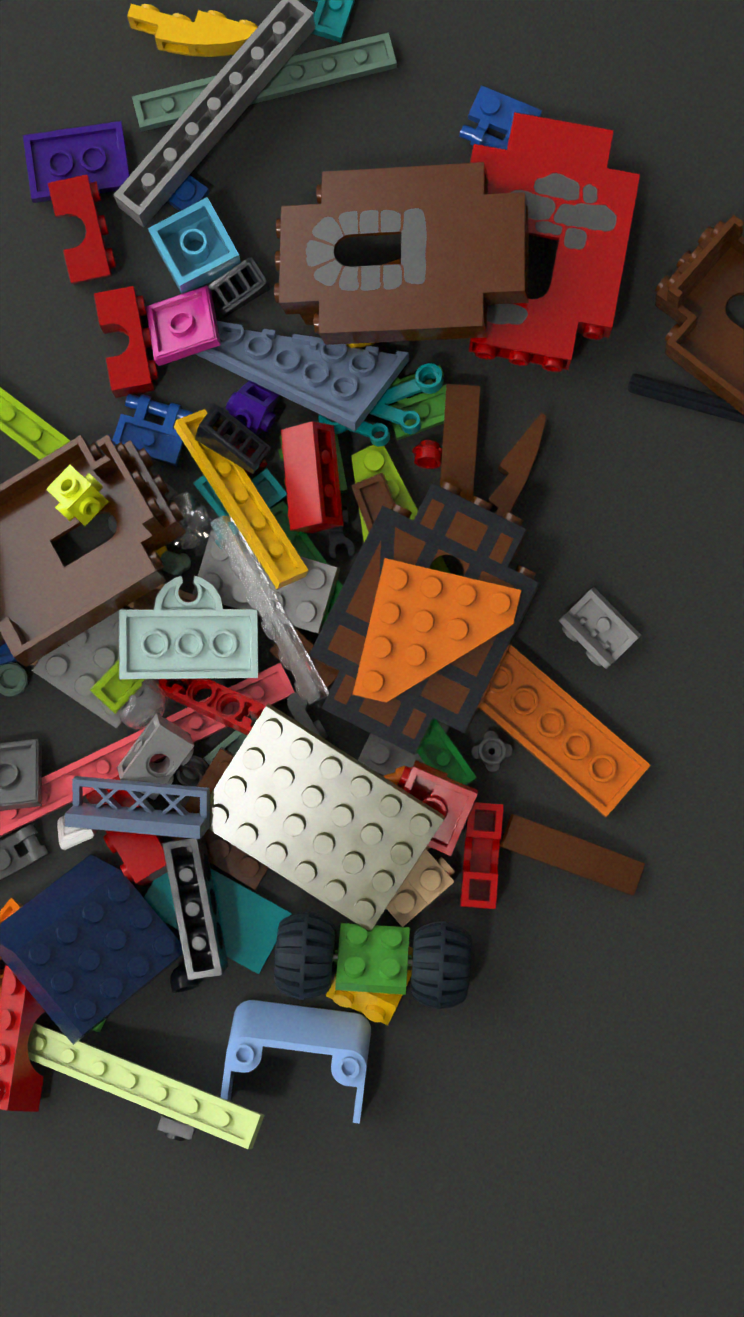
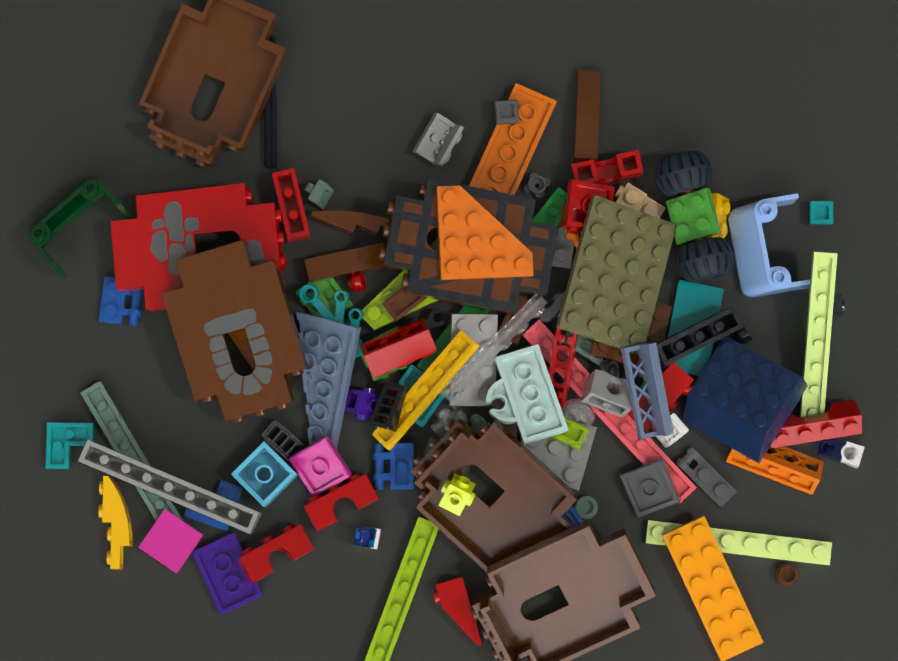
camera: 110 degrees left, 0 degrees up
(64, 360) = (367, 537): none -> clear blue leg
(143, 95) = (171, 541): none -> dark pink tile
(325, 1154) = (820, 212): none -> teal plate
(564, 391) = (291, 205): none -> red brick
(570, 437) = (319, 194): none -> sand green tile
(610, 737) = (506, 112): none -> dark grey tile
(647, 75) = (65, 212): none -> dark green windscreen

